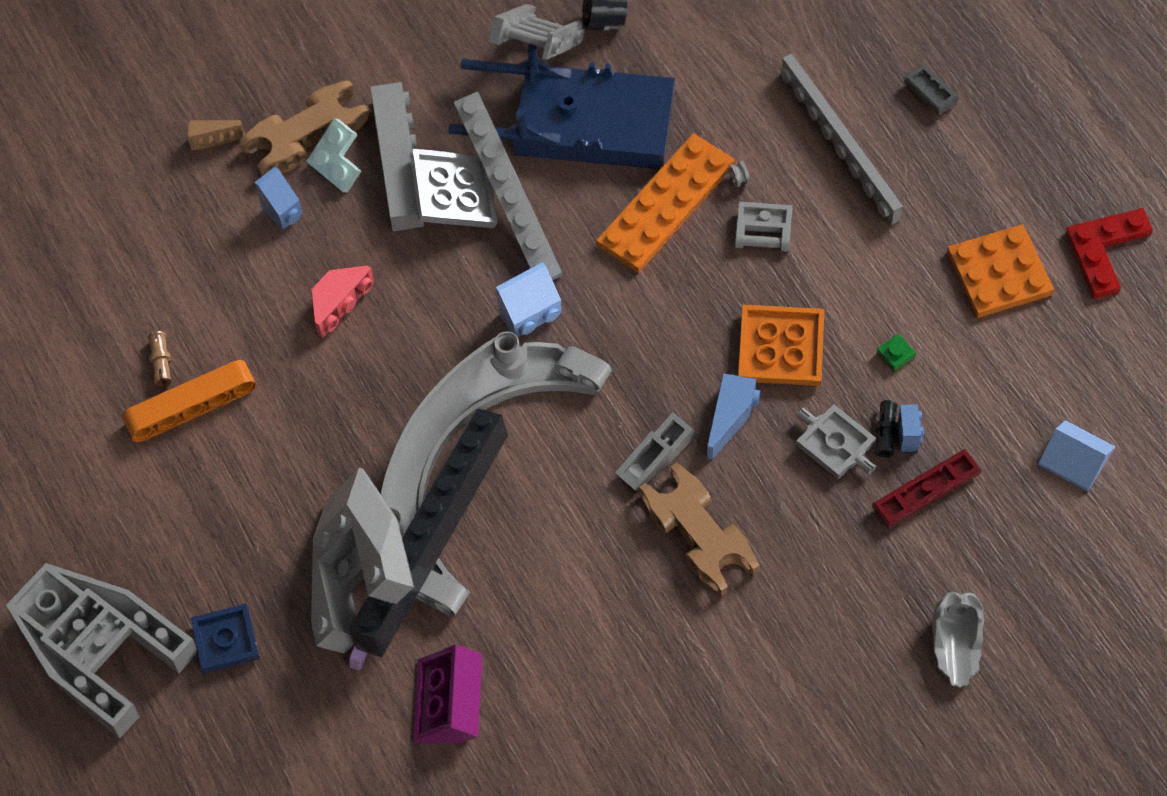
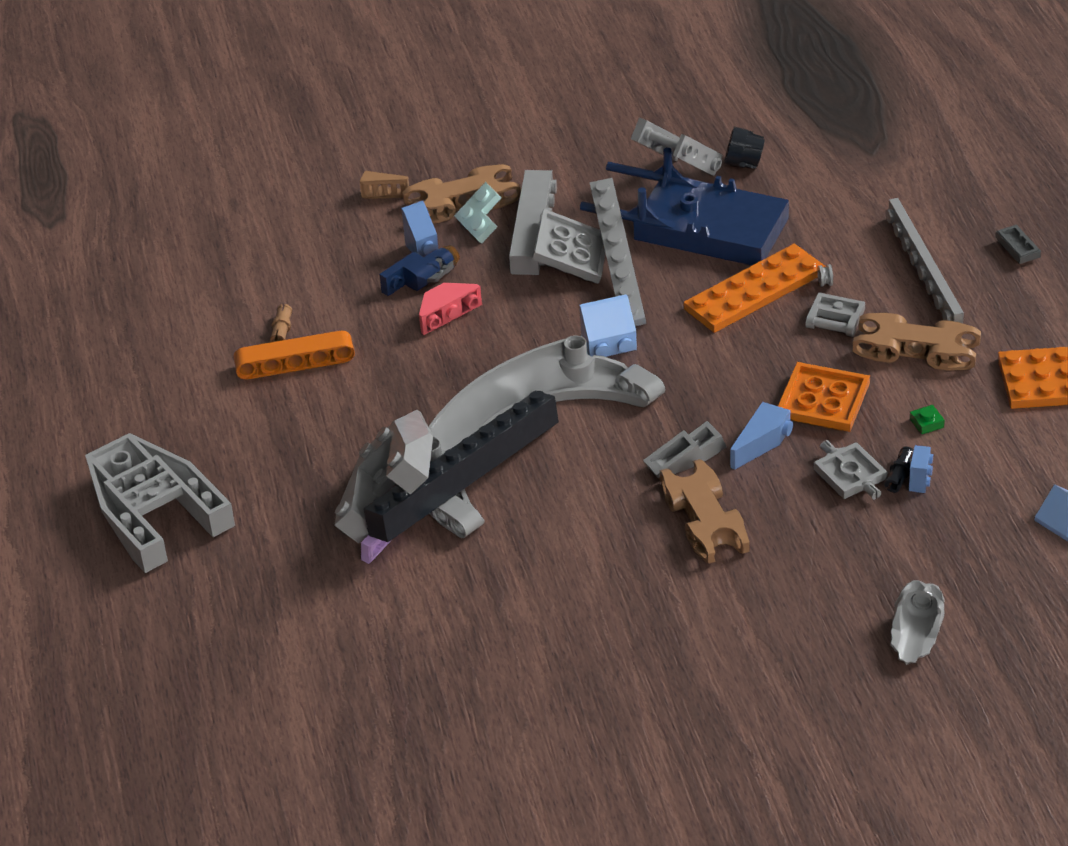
camera: 15 degrees right, 20 degrees down
(225, 638) = (261, 518): dark blue plate -> none
(295, 251) = (419, 271): none -> dark blue plate
(448, 696) = (439, 589): magenta slope -> none
(874, 248) = (936, 344): none -> medium nougat piece
(926, 488) = (922, 516): dark red plate -> none

